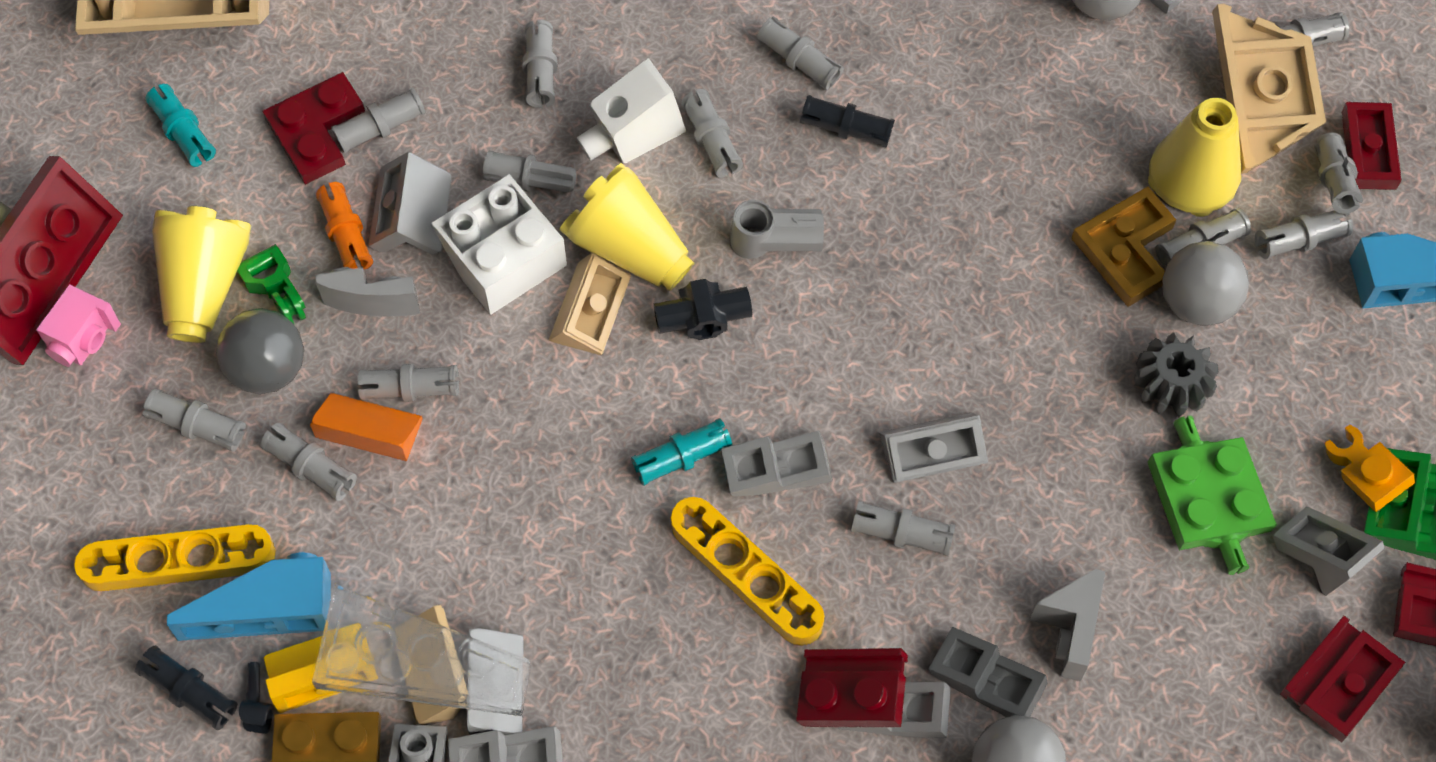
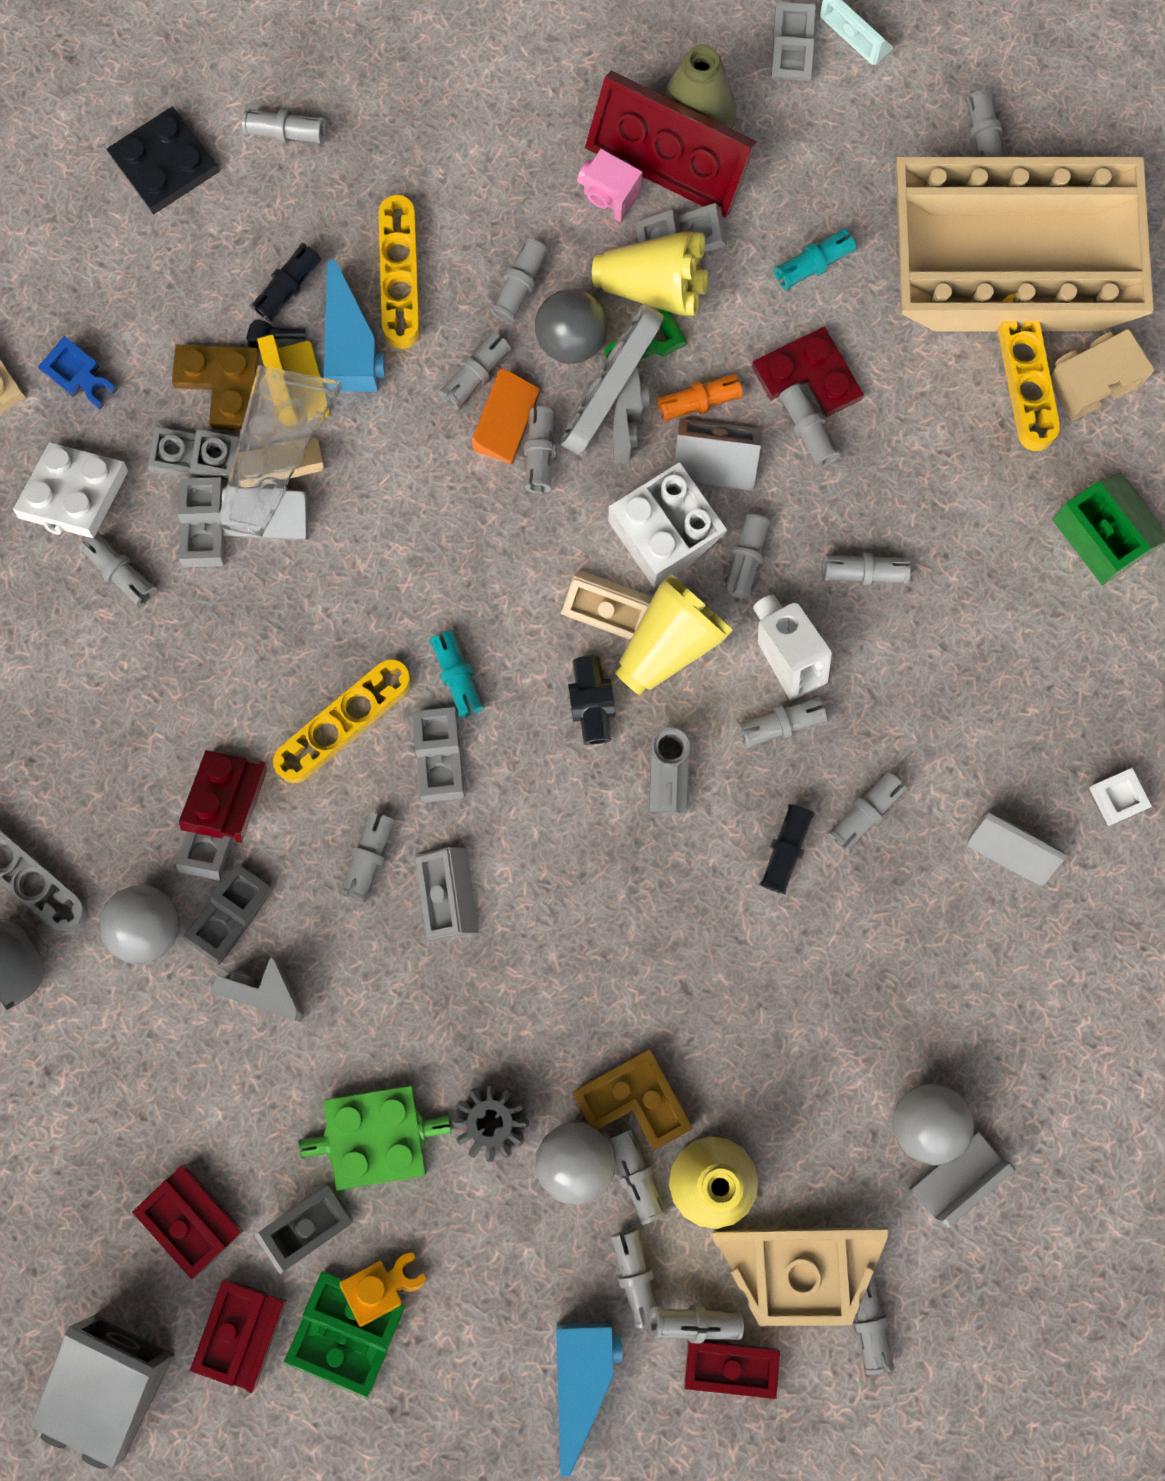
camera: 95 degrees right, 15 degrees up
(136, 256) = (702, 220): none -> light grey slope
(332, 296) = (611, 379): none -> light grey beam

